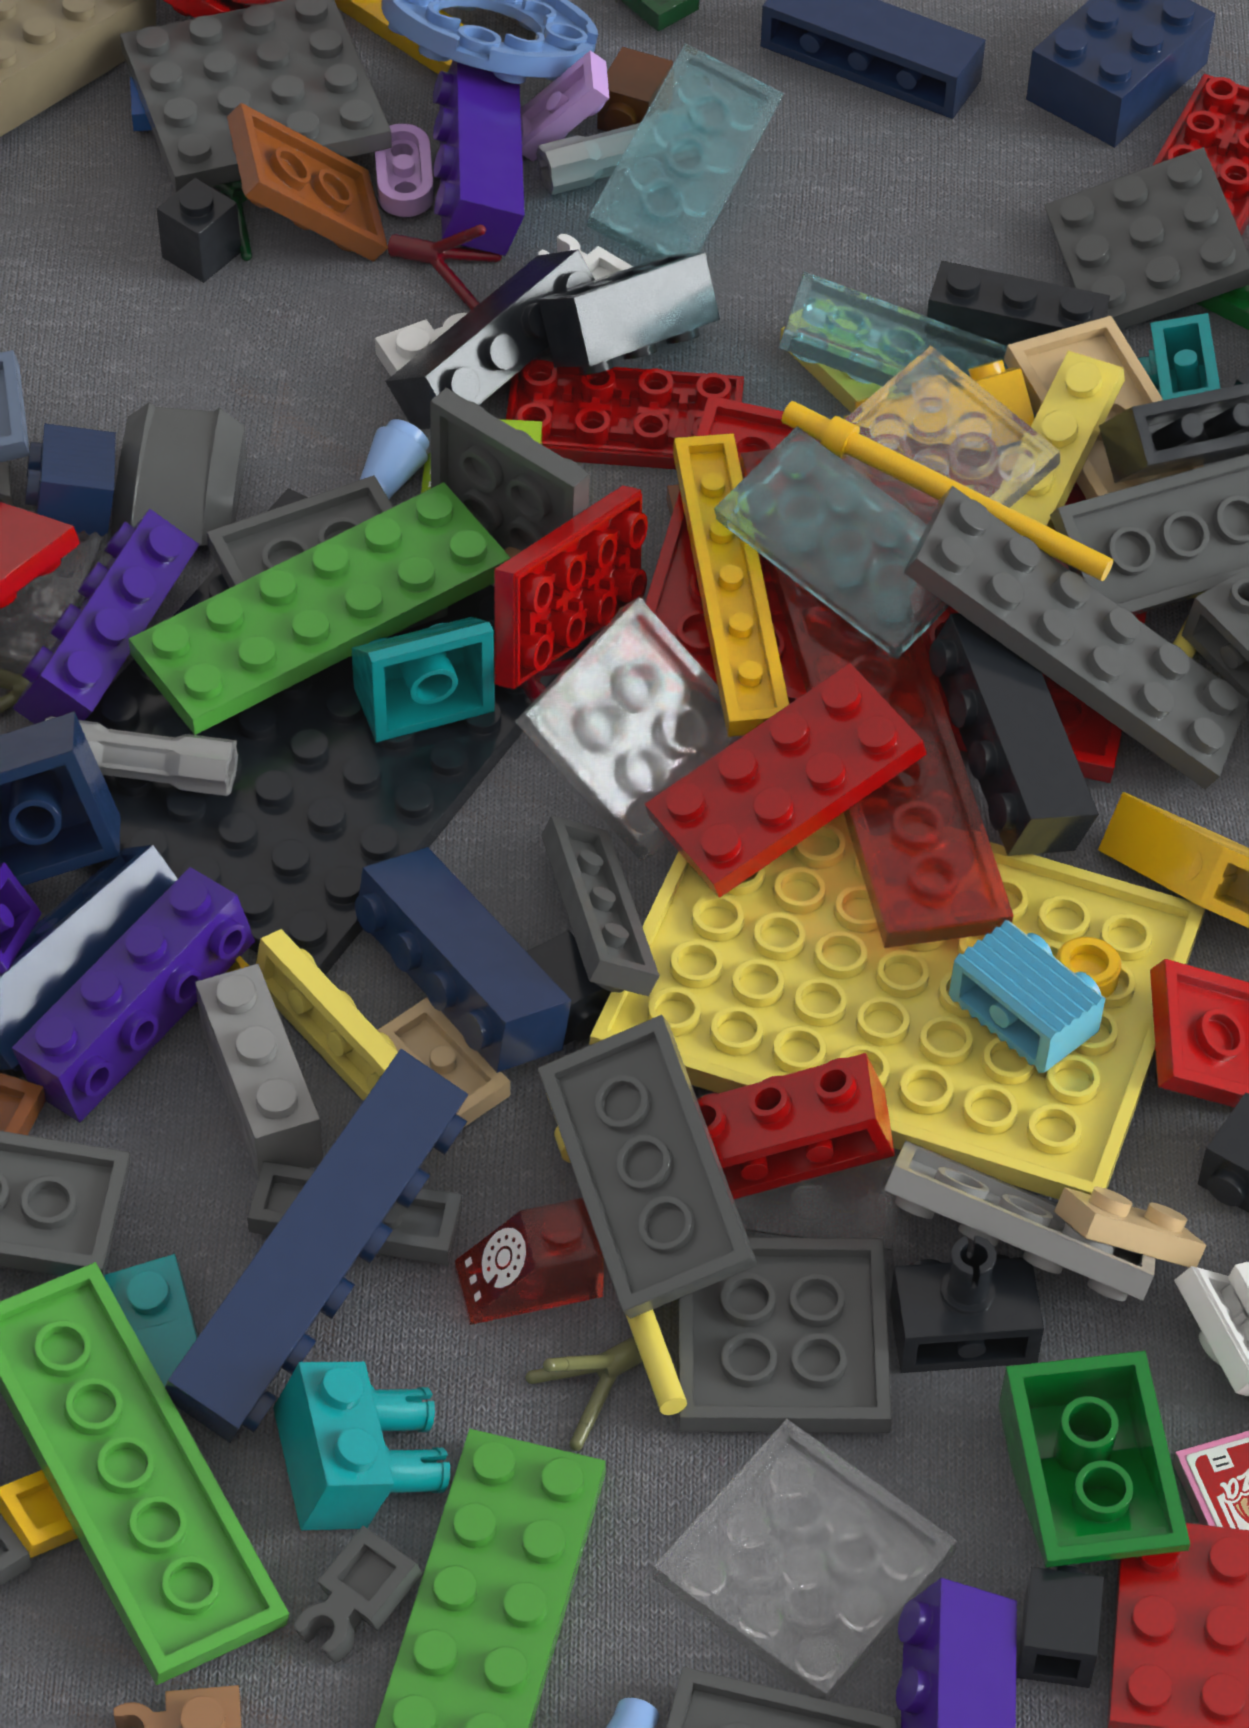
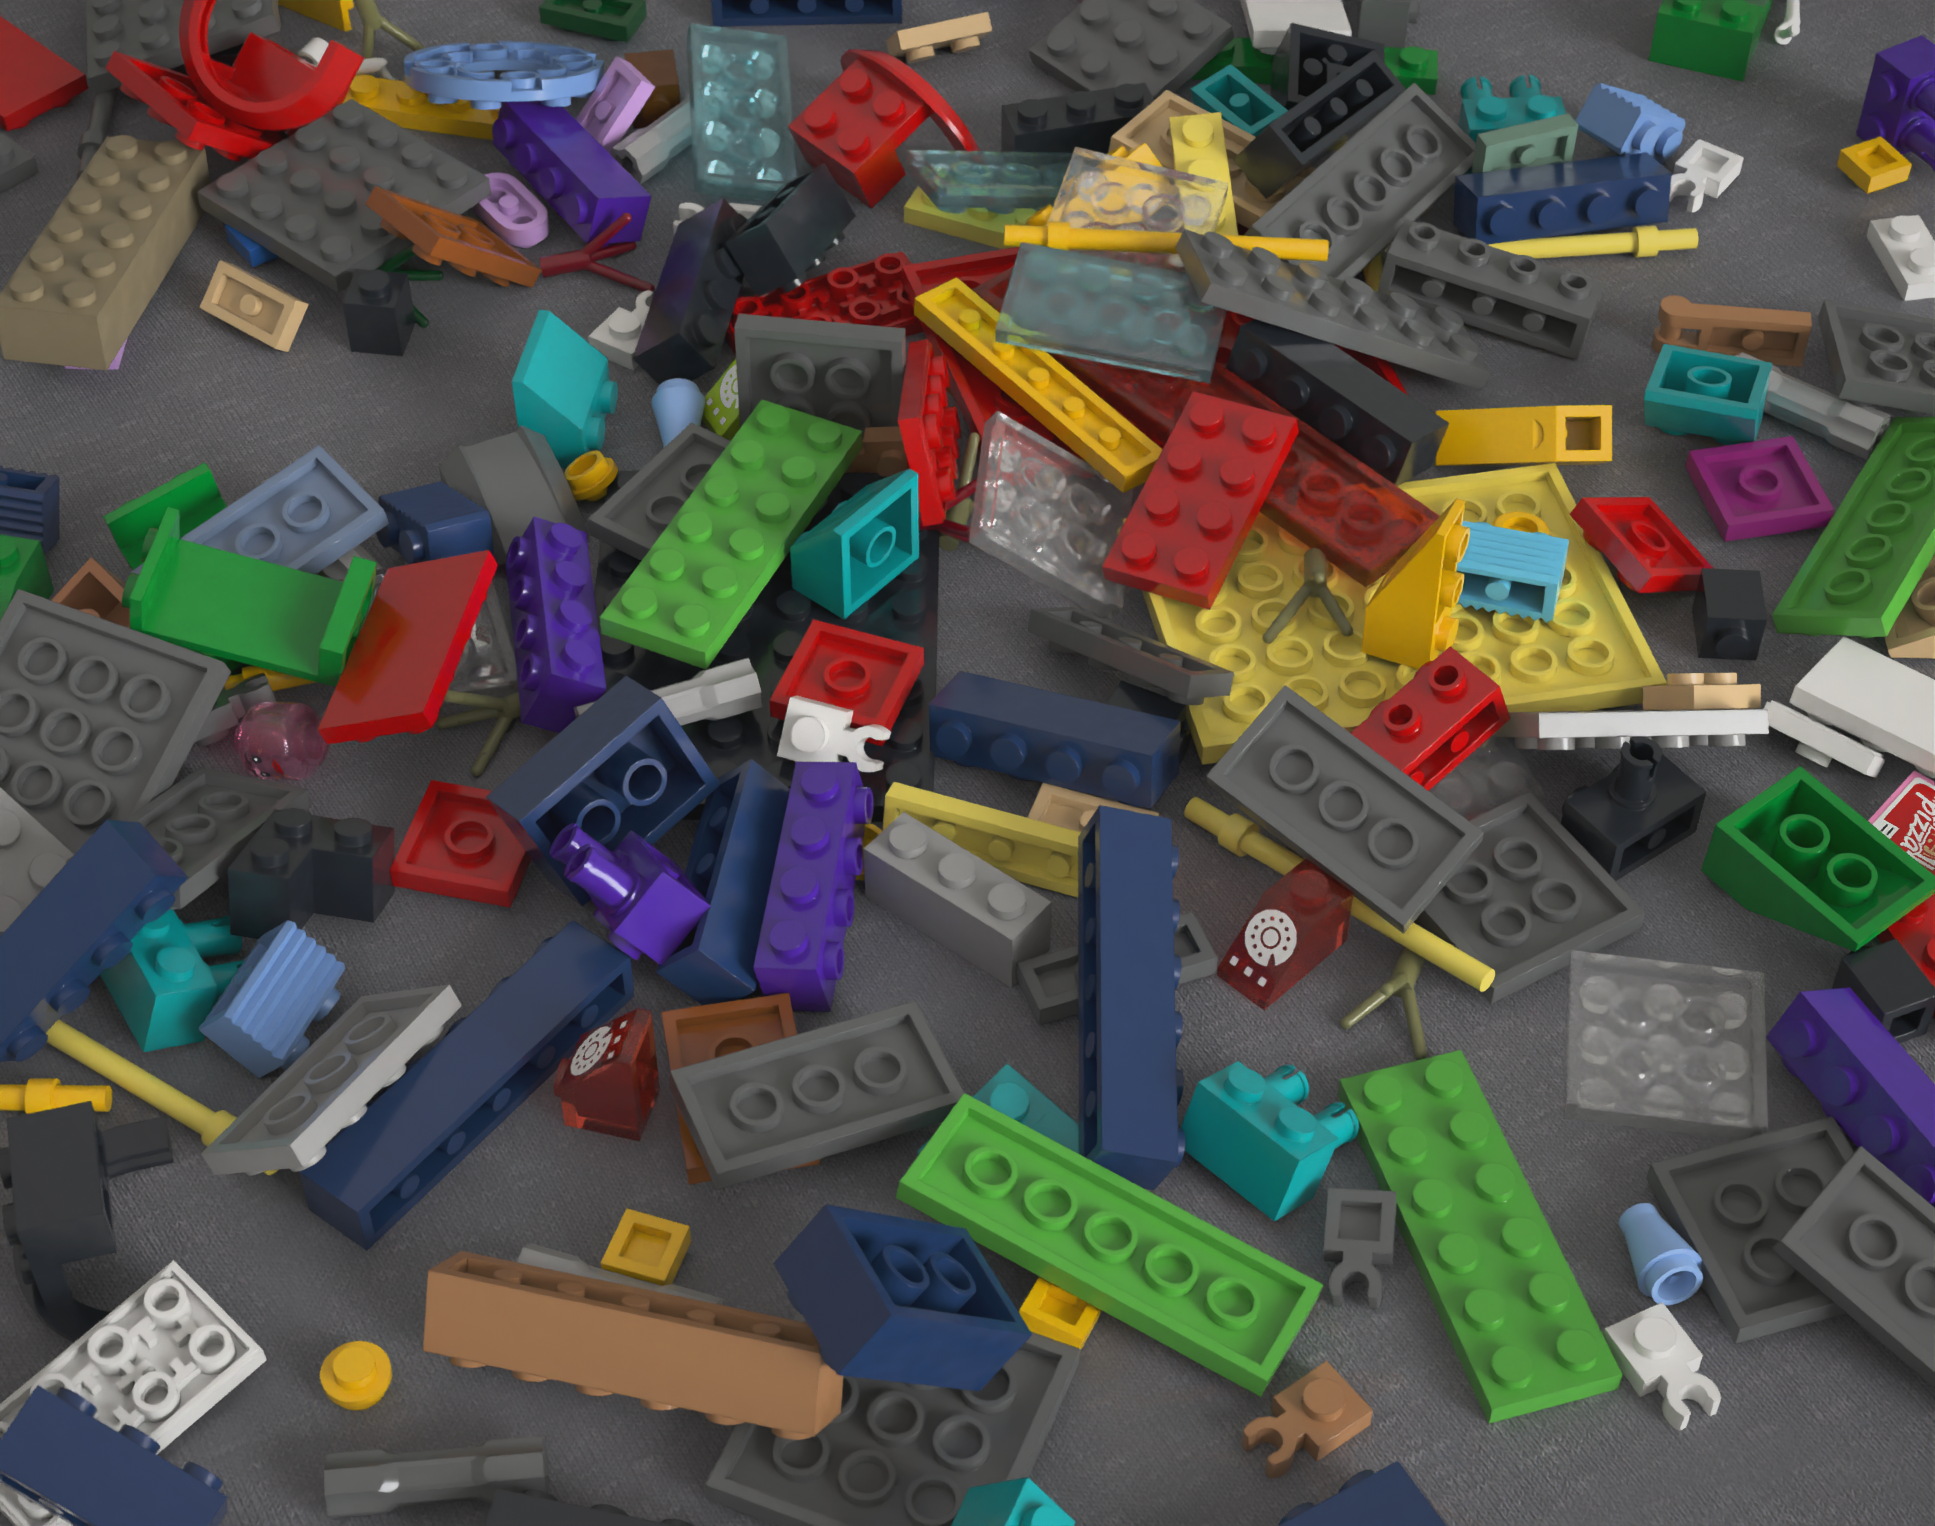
camera: 30 degrees left, 5 degrees down
(97, 174) = (254, 306): none -> tan plate
(247, 854) = (823, 734): none -> white plate
(265, 485) = (590, 475): none -> yellow plate
(289, 388) = (563, 389): none -> teal slope
(316, 809) = (850, 672): none -> red plate
(795, 217) = (867, 117): none -> red piece
(831, 921) = (1314, 586): none -> olive plant
(888, 989) = (1413, 604): none -> yellow slope
(987, 158) = (921, 41): none -> tan plate

